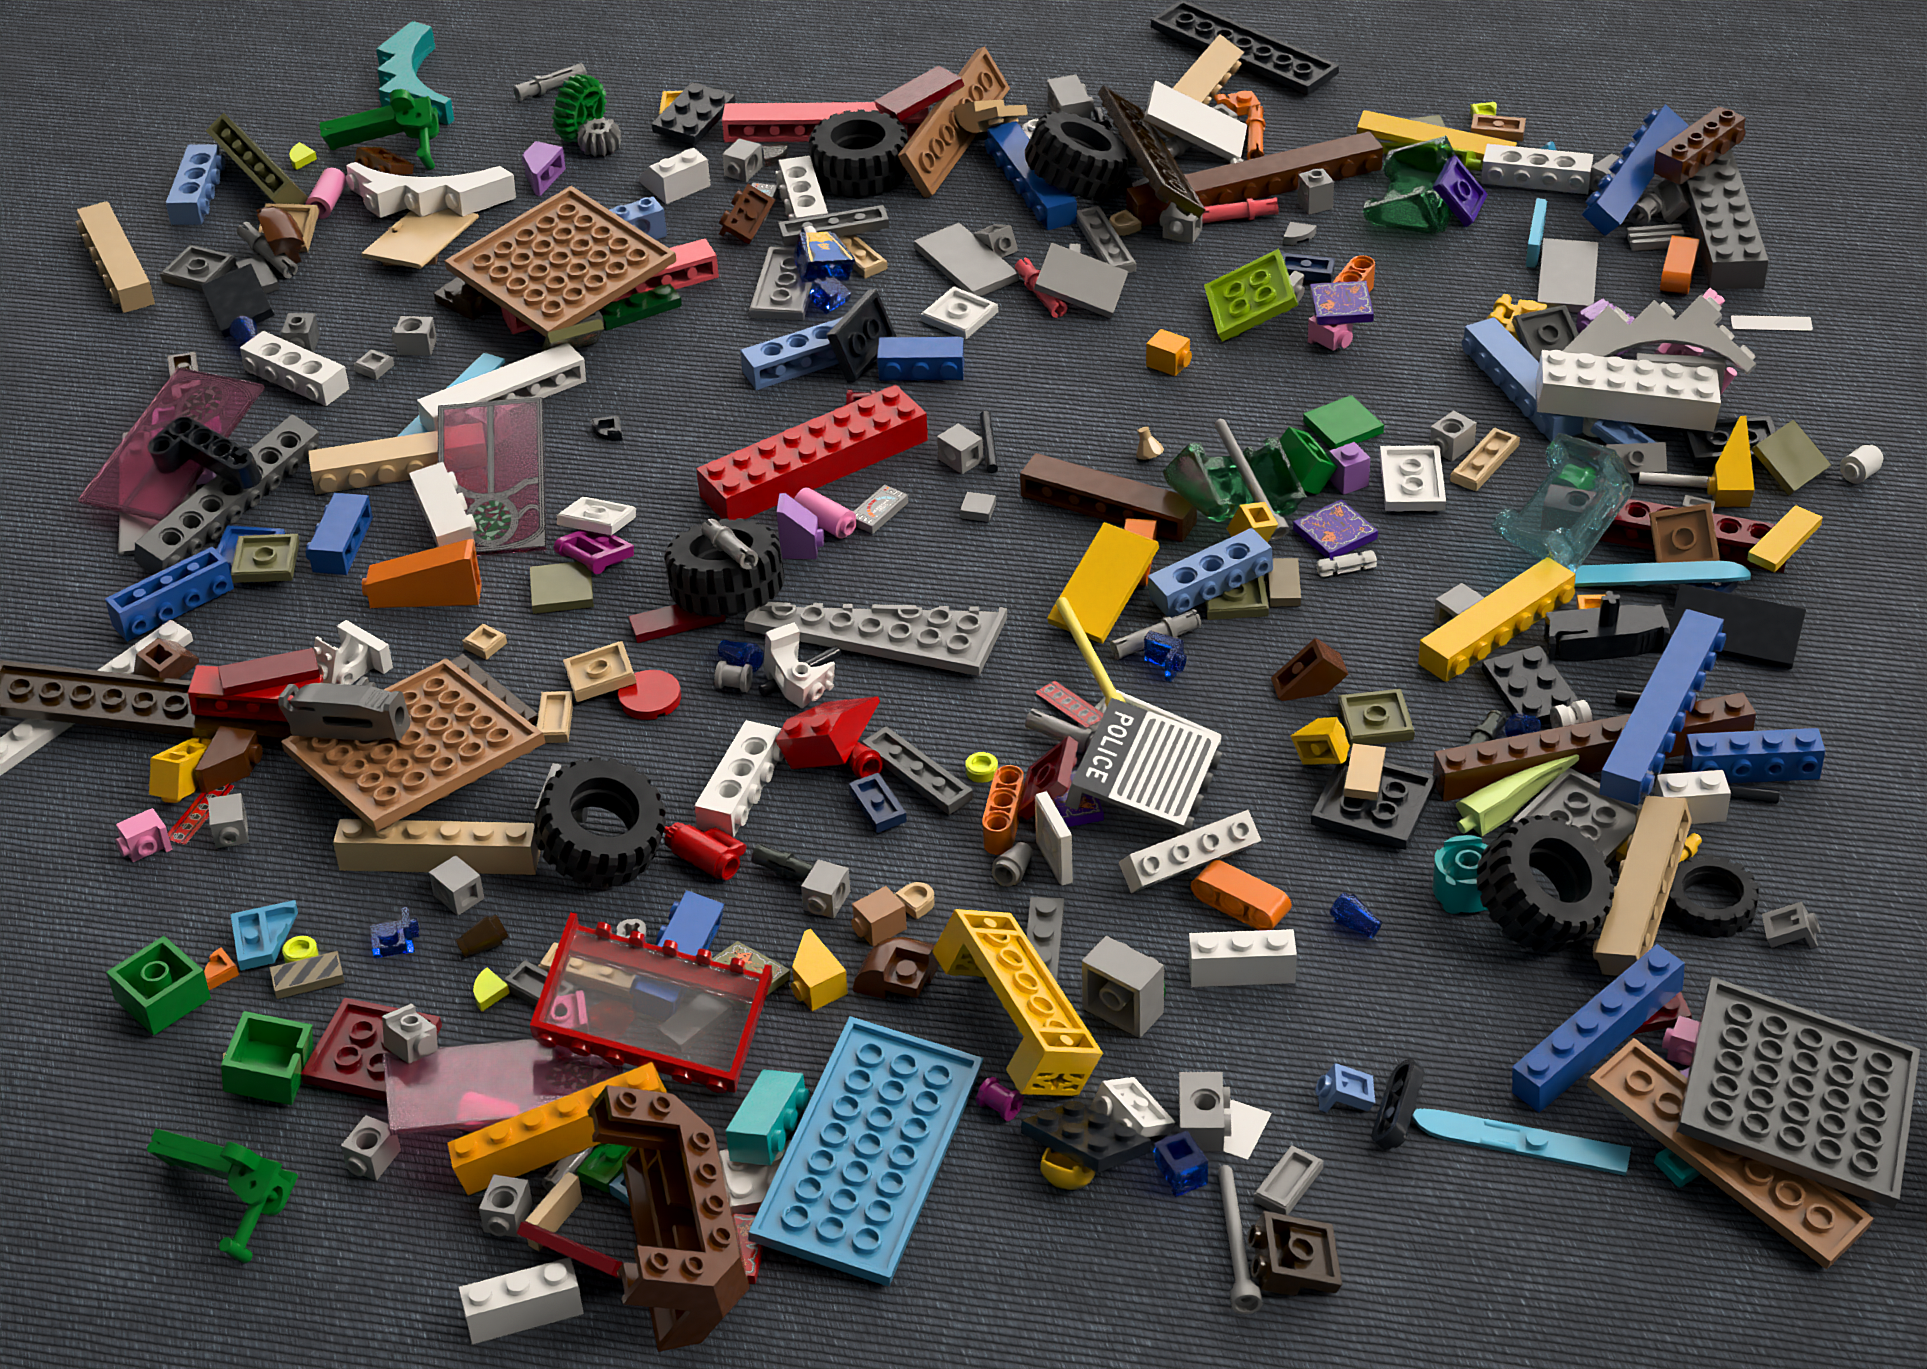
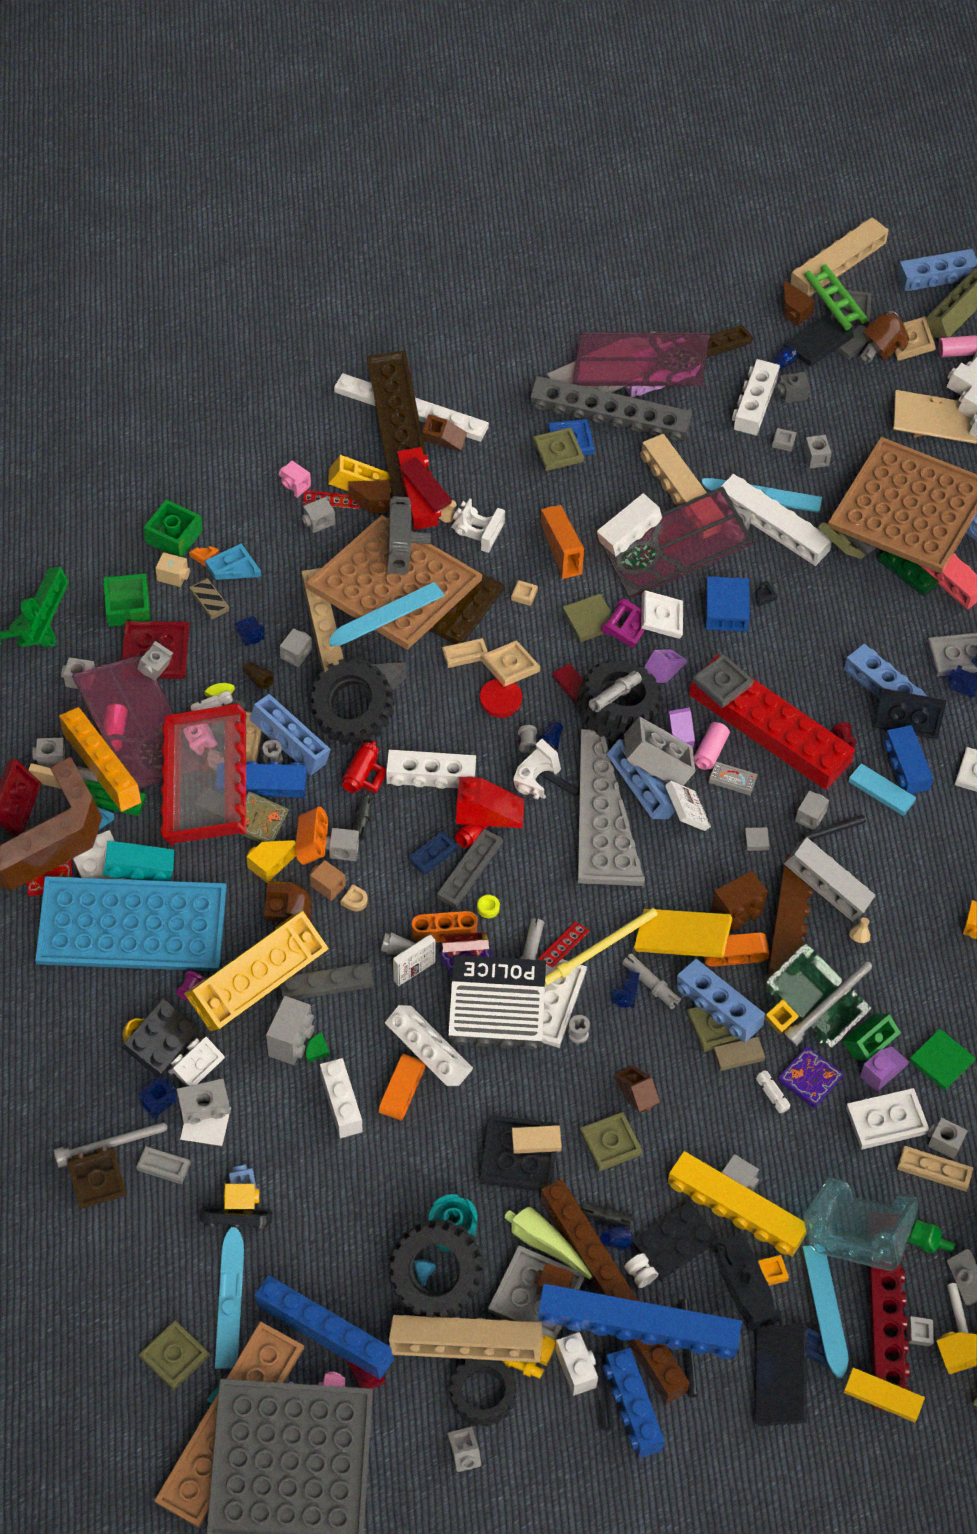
camera: 70 degrees right, 15 degrees up
(162, 307) = (796, 304): none -> reddish brown slope
(169, 593) = (504, 412): blue brick -> none
(173, 257) = (835, 306): none -> bright green bar
(191, 440) = (631, 368): black beam -> none
(227, 1001) = (172, 569): none -> tan brick
(299, 948) = (227, 589): neon yellow tile -> none
(339, 533) = (597, 480): brick -> none
(482, 745) = (385, 614): none -> medium azure piece
(509, 995) = (214, 701): none -> white axle
(610, 457) = (727, 604): none -> blue brick
(639, 895) = (291, 733): none -> medium blue brick
(674, 523) = (664, 664): none -> medium lavender slope
(746, 464) = (722, 681): none -> dark grey tile
(802, 912) = (311, 835): none -> orange beam
(831, 541) = (659, 752): none -> light grey brick
(852, 576) = (647, 788): none -> medium blue brick
(912, 544) = (687, 806): none -> white tile
(953, 390) = (882, 789): none -> medium azure tile
(1075, 442) = (829, 879): none -> light grey brick
(1076, 521) = (741, 898): none -> reddish brown piece
(1207, 704) = (579, 1029): none -> light grey bush
(1321, 742) = (559, 1108): yellow slope -> none
(1355, 915) = (403, 1159): clear blue cone -> none
(1376, 1083) = (240, 1195): none -> yellow brick
(1580, 787) = (553, 1276): none -> reddish brown brick
(1599, 1214) = (174, 1355): none -> olive tile
(1684, 534) = (866, 1321): medium nougat tile -> none

